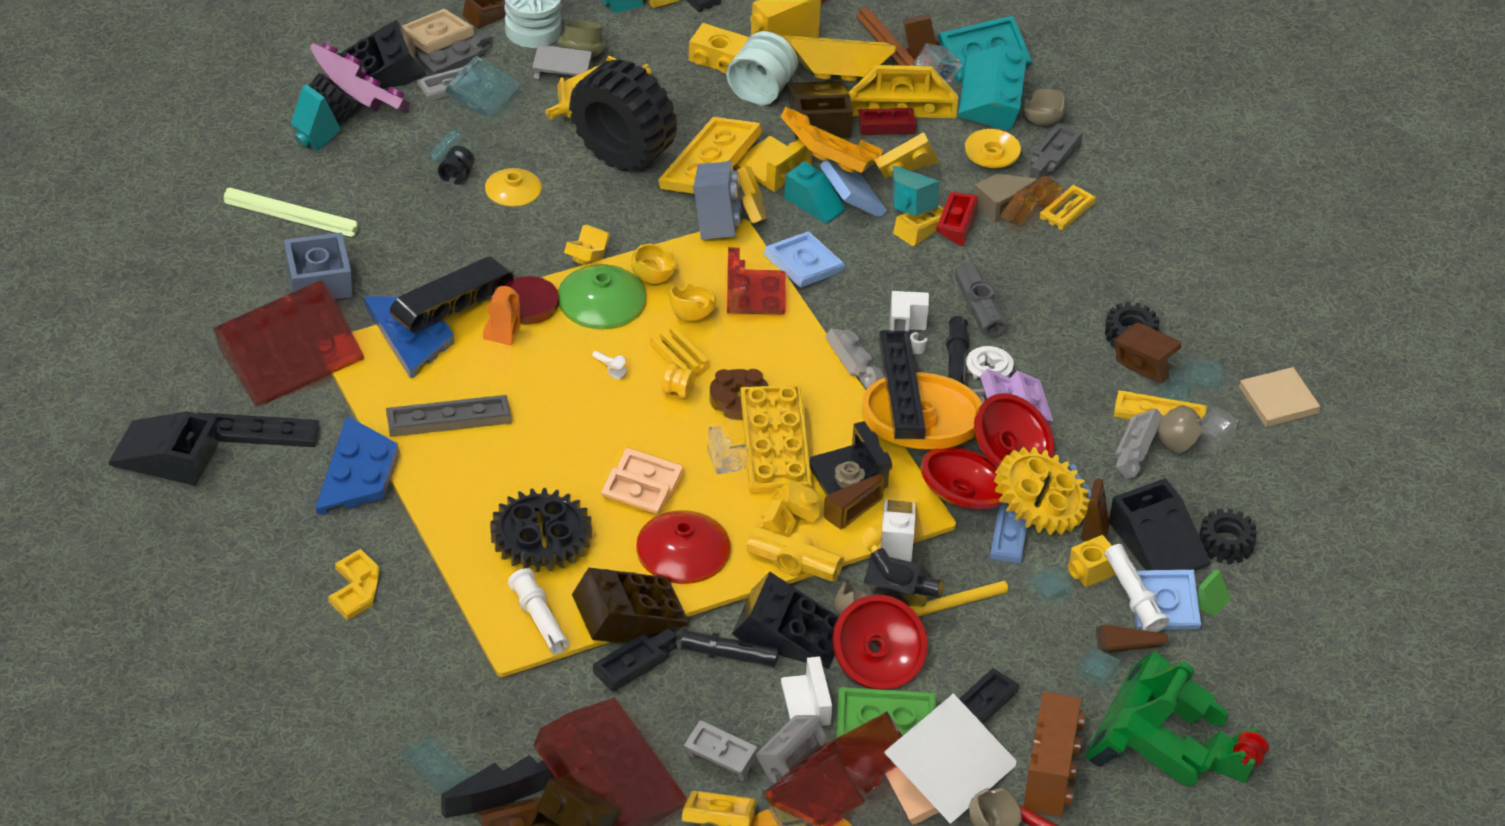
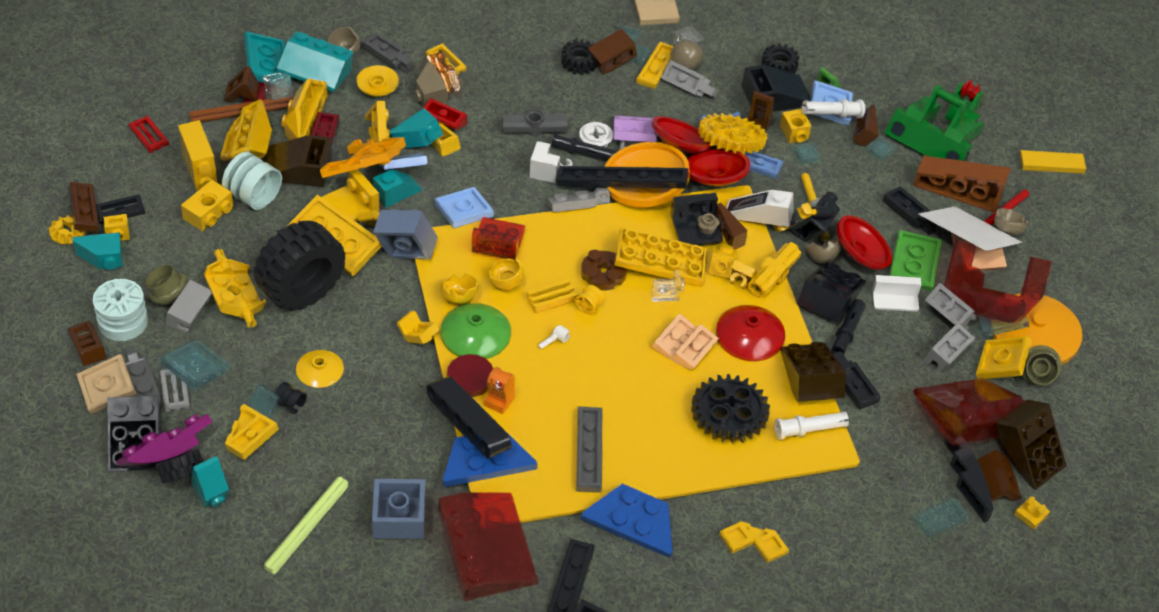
camera: 80 degrees left, 5 degrees up
(399, 145) = (249, 432): none -> yellow wing

